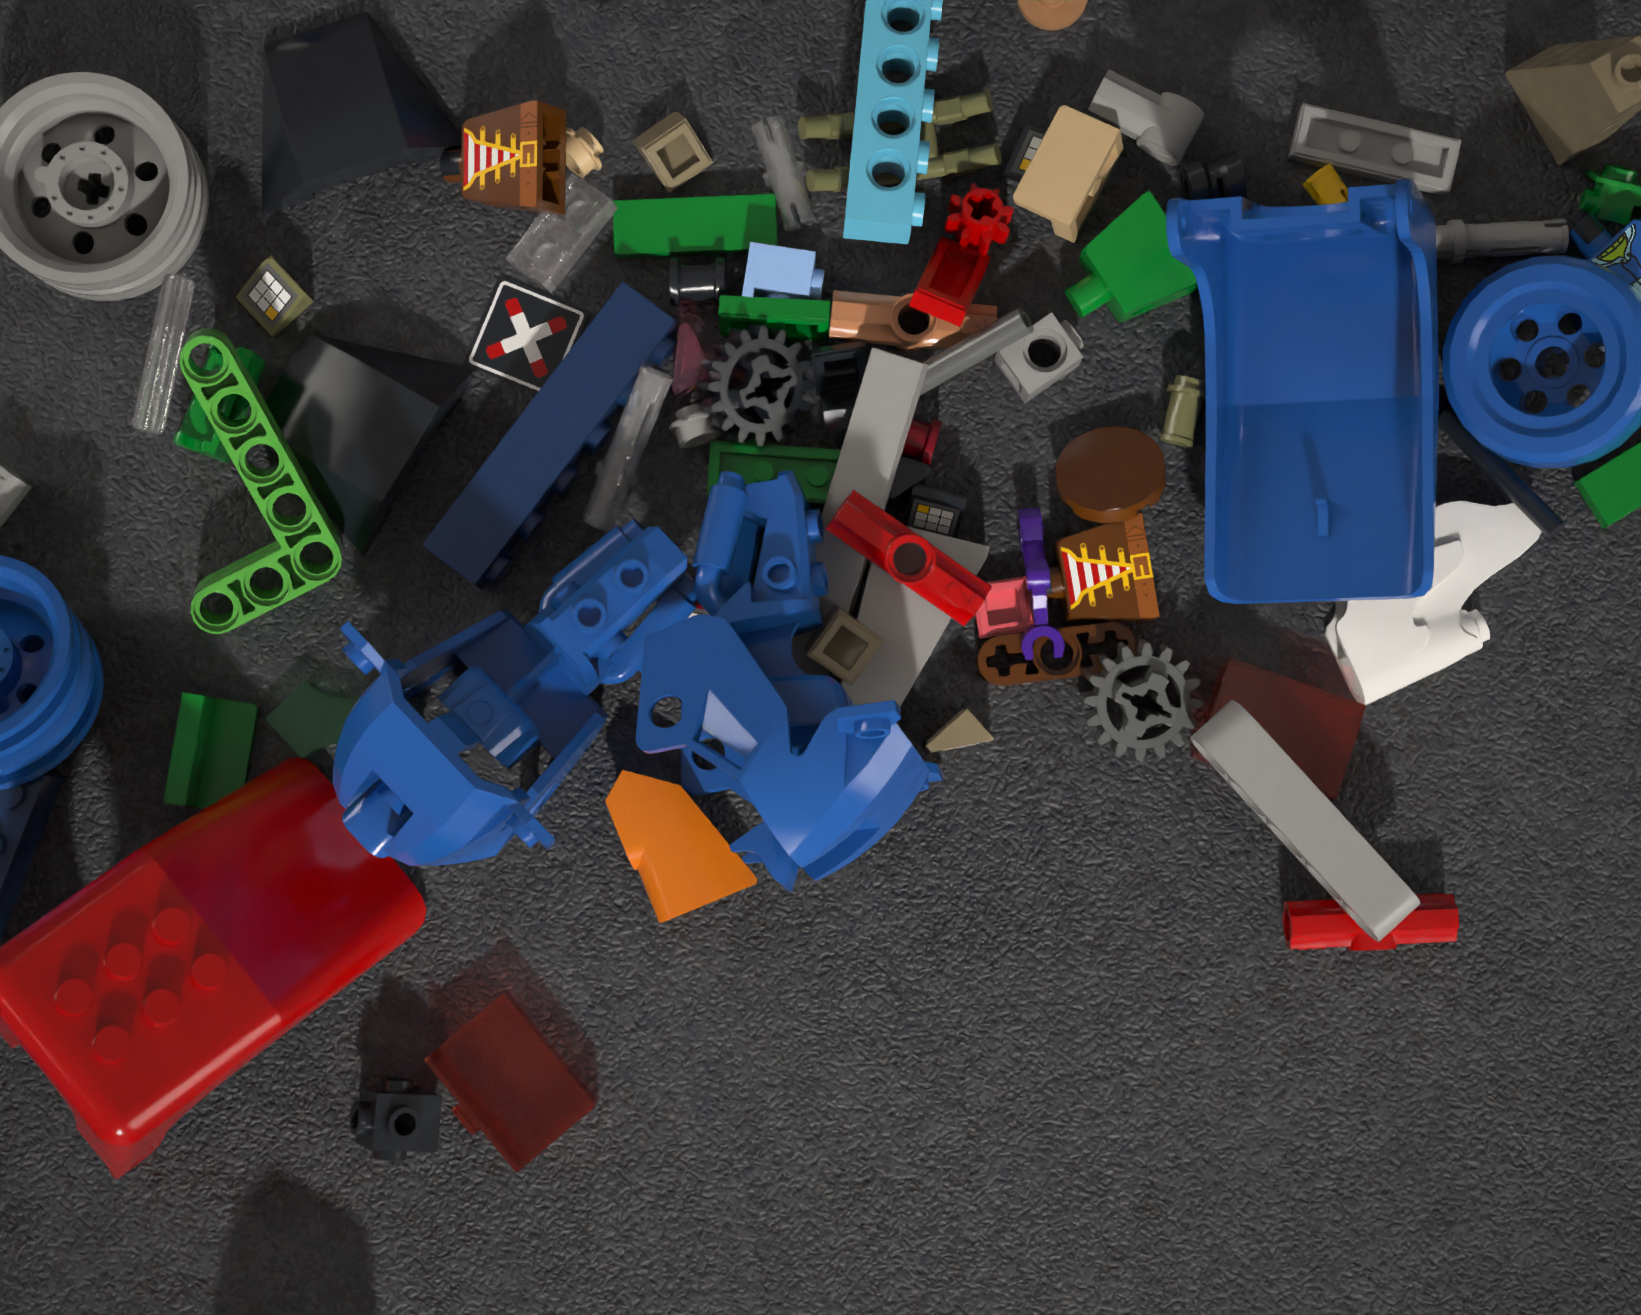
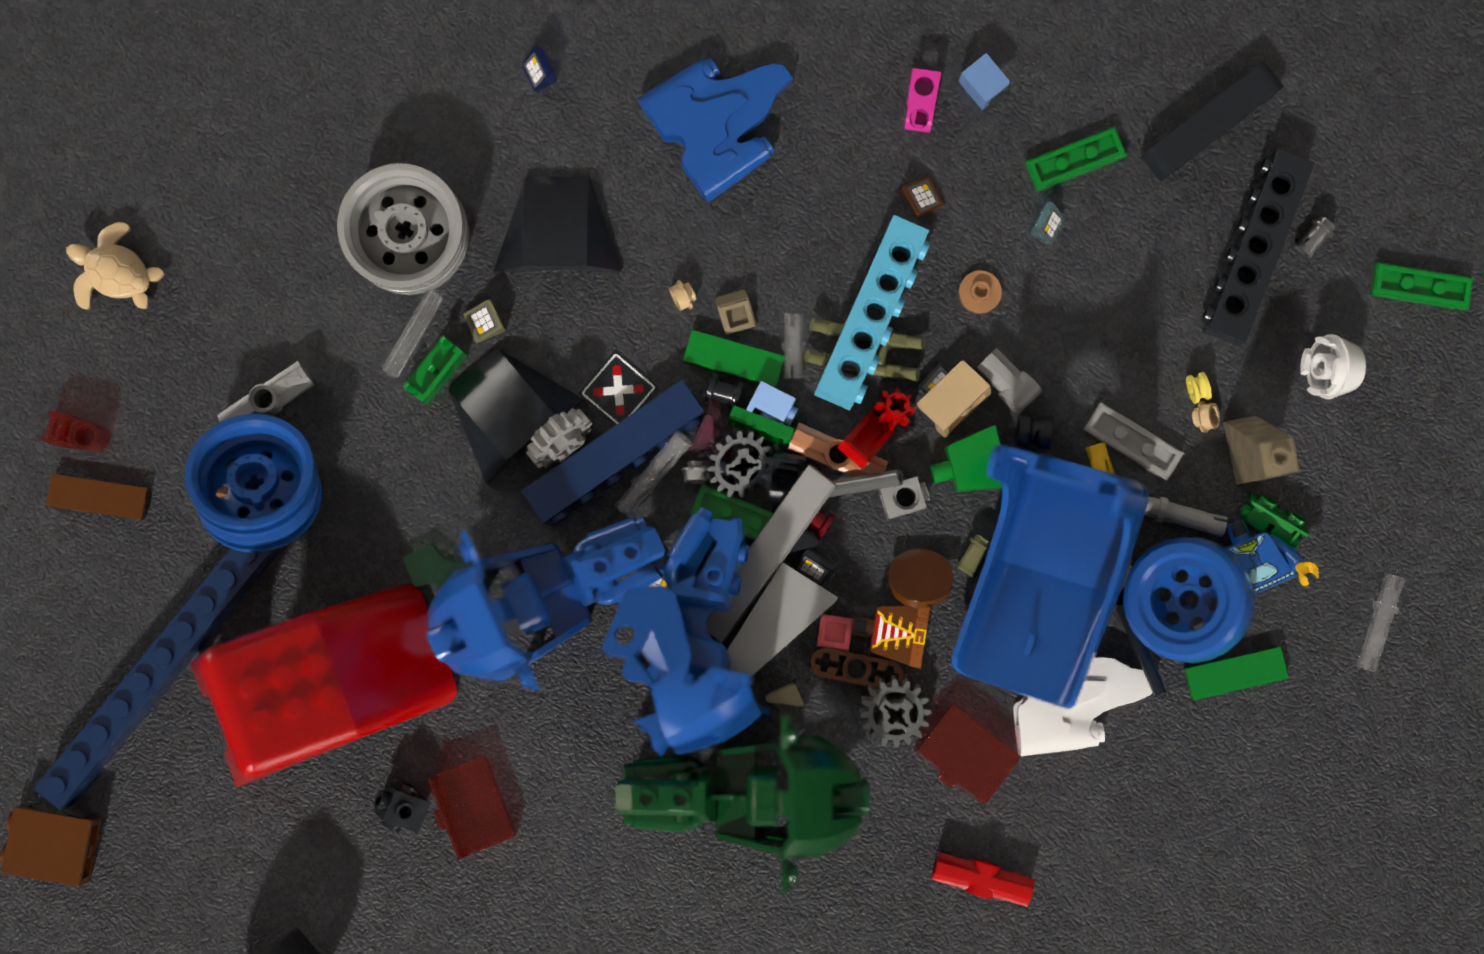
camera: 25 degrees right, 0 degrees up
(210, 750) = (366, 565): green panel -> none
(265, 487) = (445, 429): bright green beam -> none
(455, 439) = (559, 438): none -> light grey gear
(512, 159) = (643, 290): reddish brown torso -> none
(558, 241) = (657, 339): clear plate -> none
(673, 846) = (605, 706): orange panel -> none
(843, 645) = (737, 625): dark tan slope -> none
(934, 914) = (738, 795): none -> dark green piece
(937, 580) = (803, 606): red piece -> none
(1037, 580) = (858, 626): dark purple piece -> none
(1305, 820) = (963, 811): light grey beam -> none
(1450, 29) = (1198, 387): none -> light yellow bush
(1477, 70) = (1206, 416): none -> tan plate

